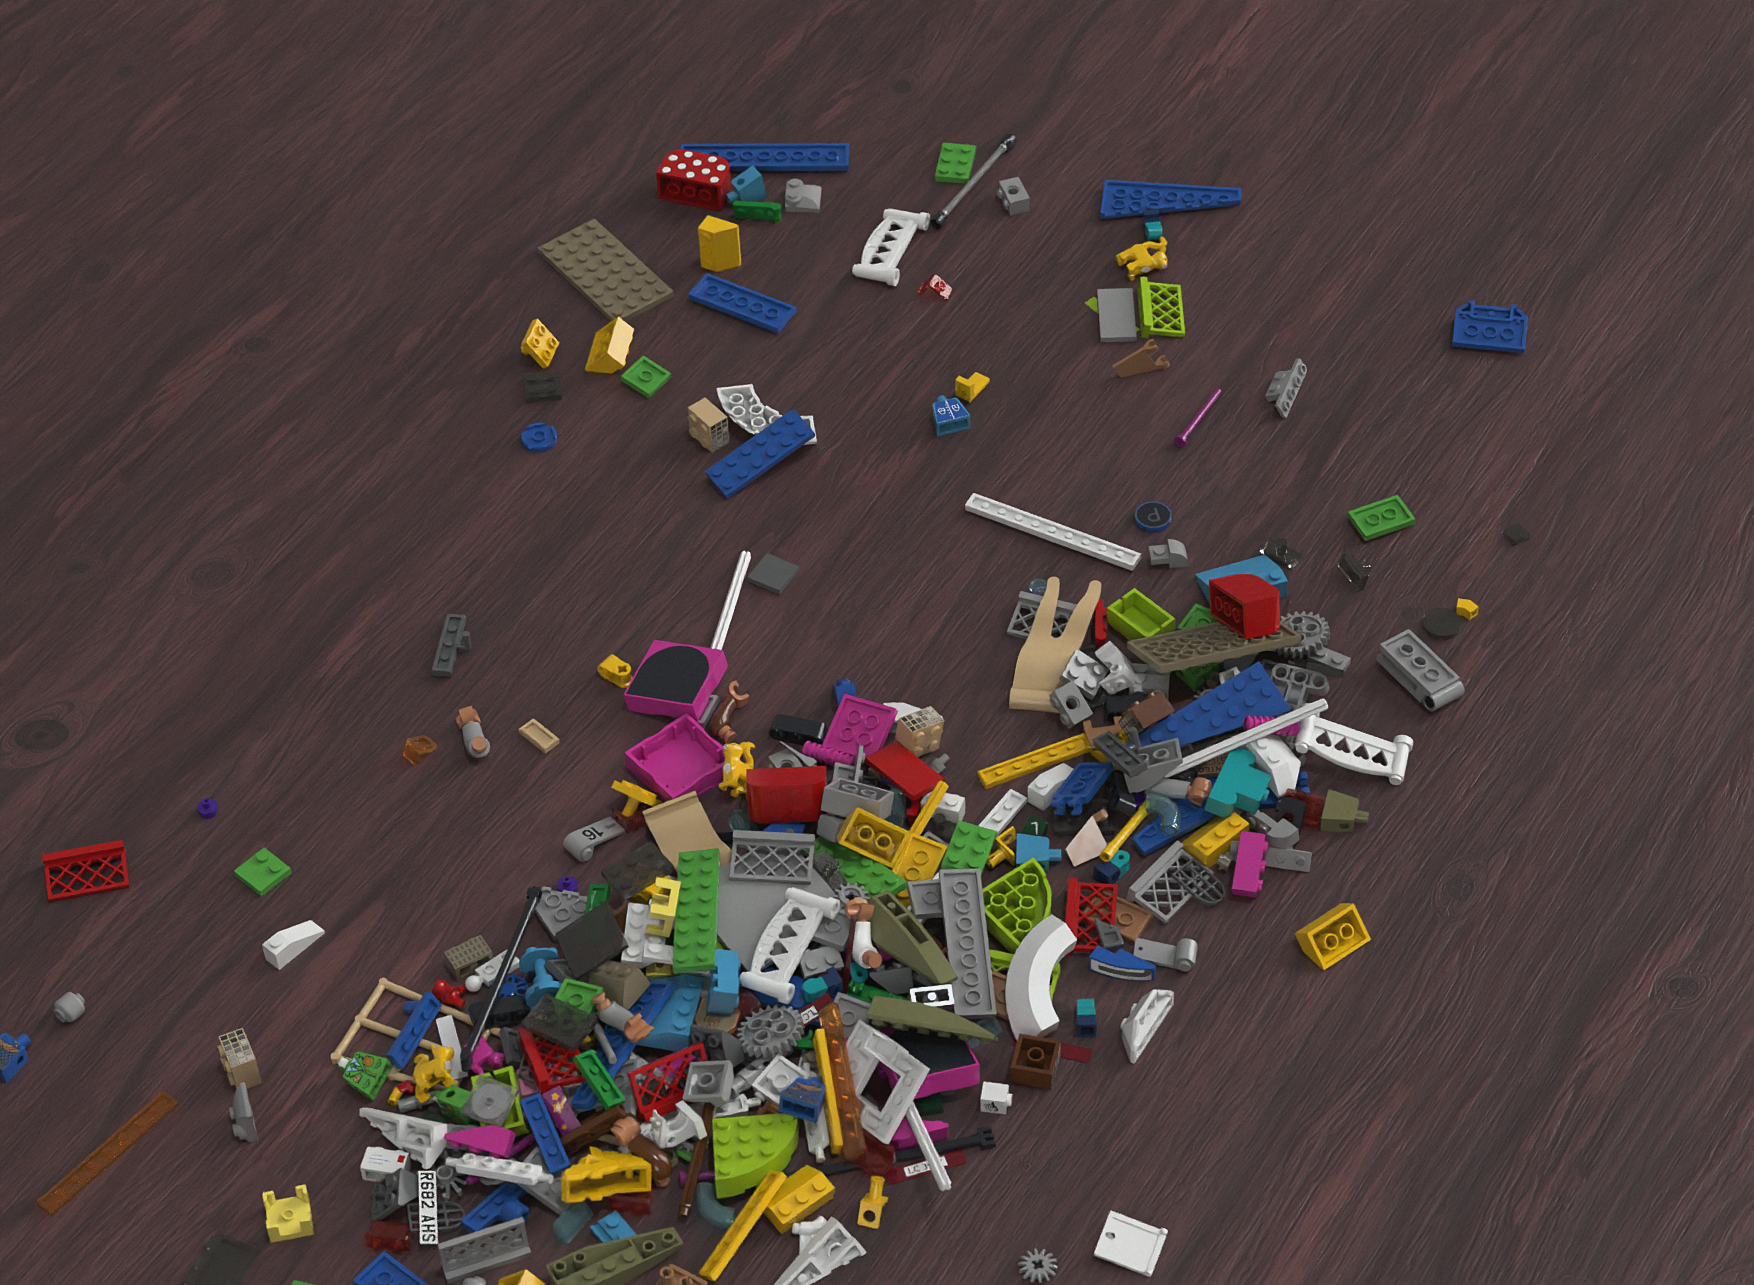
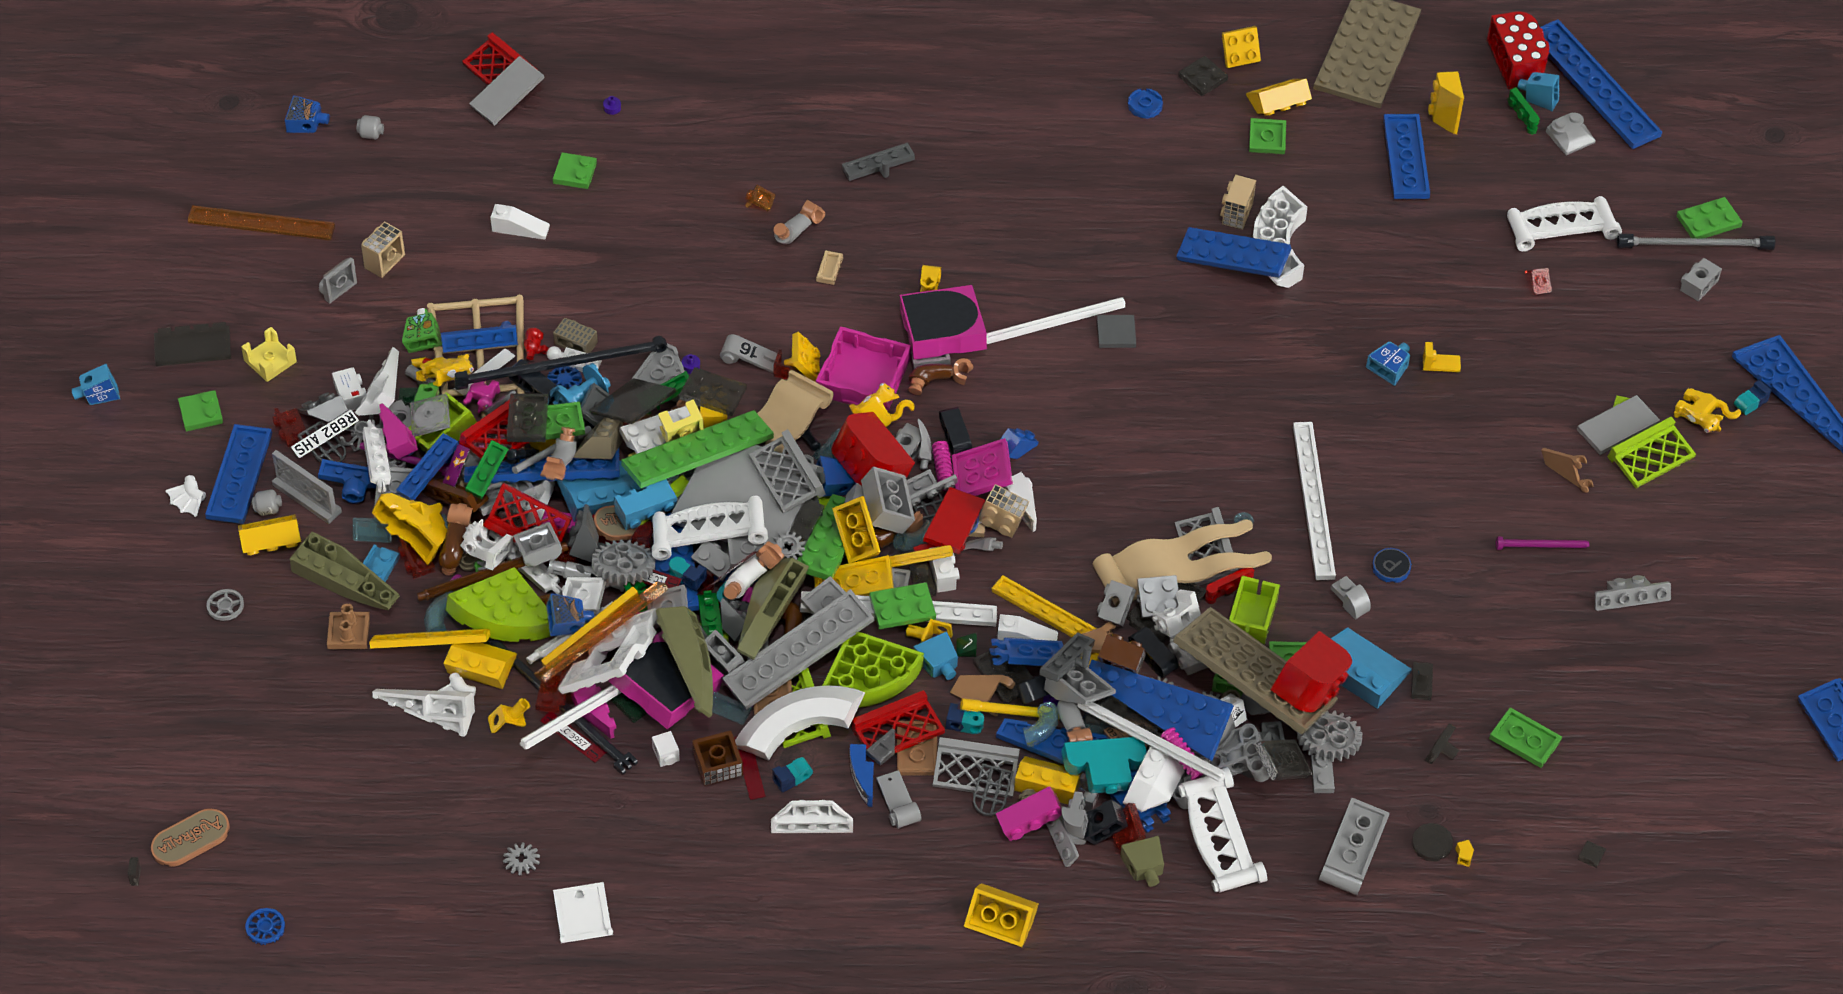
camera: 55 degrees right, 5 degrees up
(122, 877) = (506, 90): none -> light grey tile

